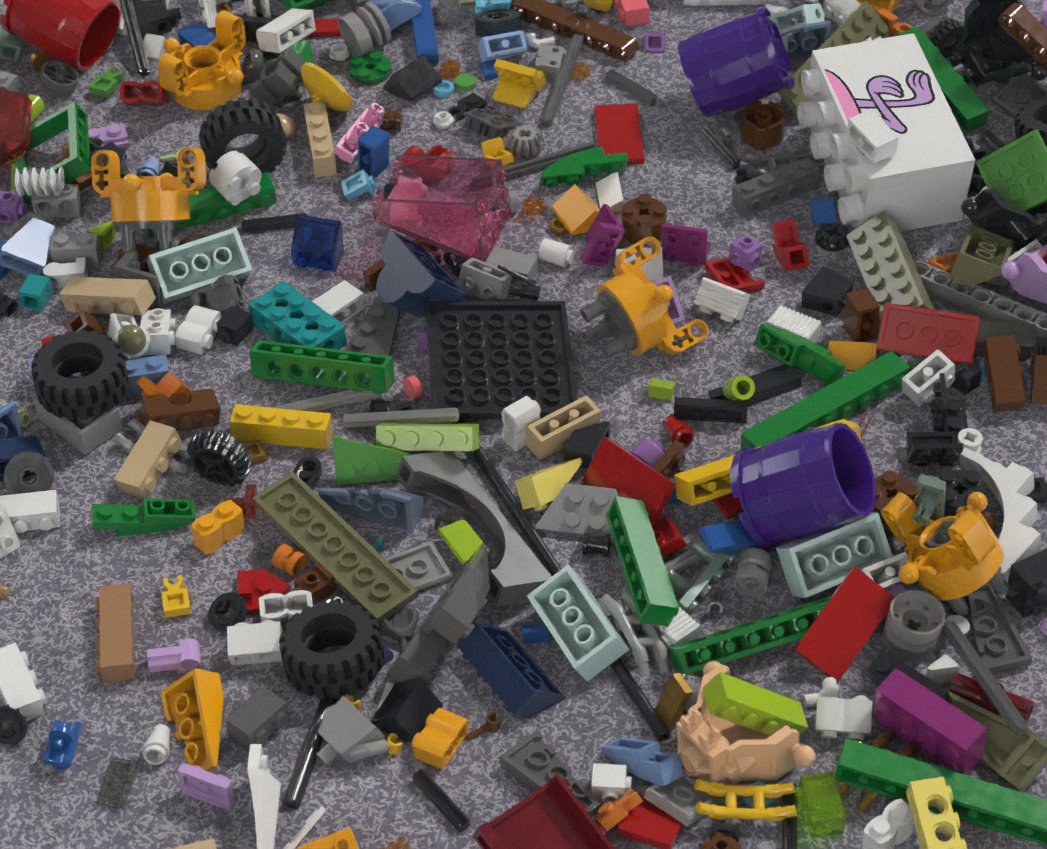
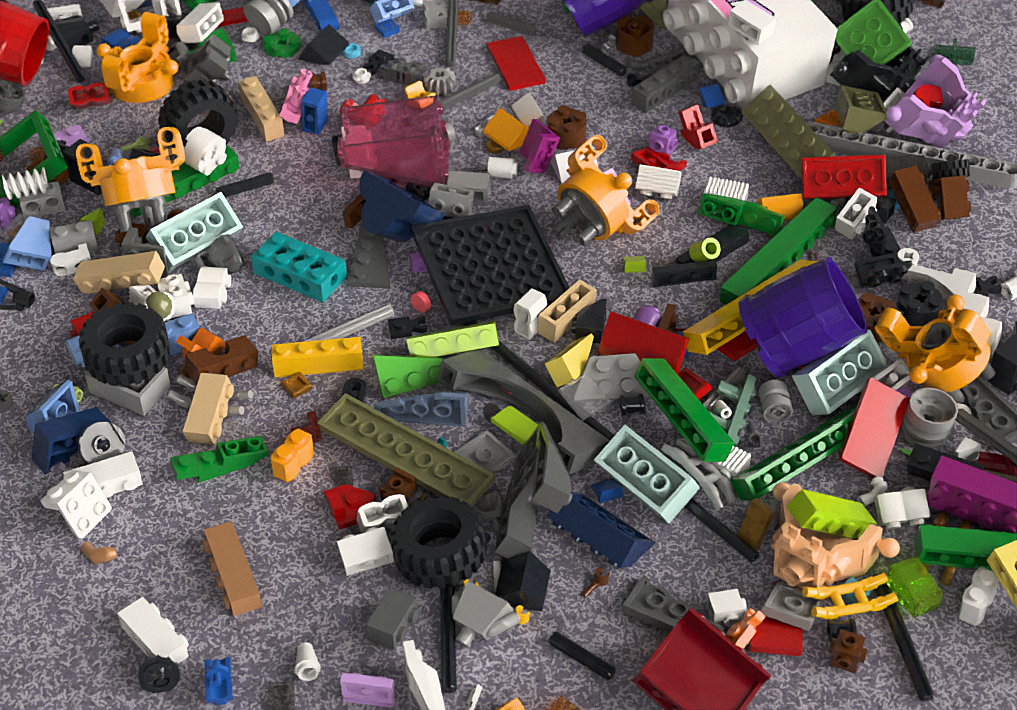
camera: 15 degrees left, 0 degrees up
(35, 292) = (49, 281): teal brick -> none
(106, 84) = (51, 94): bright green plate -> none
(175, 598) = (274, 527): yellow plate -> none
(183, 656) = (300, 577): lavender piece -> none
(197, 710) = (333, 624): light orange wedge -> none
(219, 457) = (273, 393): black gear -> none
(221, 605) = (320, 524): black gear -> none
(234, 325) = (242, 278): black brick -> none
(288, 559) = (367, 471): orange wheel -> none
(317, 243) = (292, 194): clear blue slope -> none
(322, 366) = (346, 291): green brick -> none
(325, 88) = (253, 62): yellow dish -> none
(341, 301) = (332, 239): white brick -> none
(358, 184) = (309, 140): medium azure bracket -> none
(372, 419) = (440, 324): light grey axle -> none
(440, 738) = (561, 601): light orange brick -> none
(450, 68) = (352, 33): clear orange plate -> none
(465, 82) = (368, 42): bright green tile -> none
(517, 84) = (416, 35): yellow piece -> none
(528, 292) = (491, 204): black plant -> none
(533, 206) = (467, 133): clear orange plate -> none
(546, 525) = (584, 397): none -> clear piece
(575, 166) = (491, 95): green slope -> none
(644, 760) = (749, 580): medium blue slope -> none
(678, 430) = (663, 295): red cone -> none
(685, 244) = (616, 137): magenta bracket -> none
(688, 570) = (721, 409): none -> white arm
(727, 538) = (752, 374): blue slope -> none
(826, 292) = (744, 160): black torso -> none
(861, 315) = (780, 173): reddish brown brick -> none
(929, 499) = (914, 307): sand green plate -> none

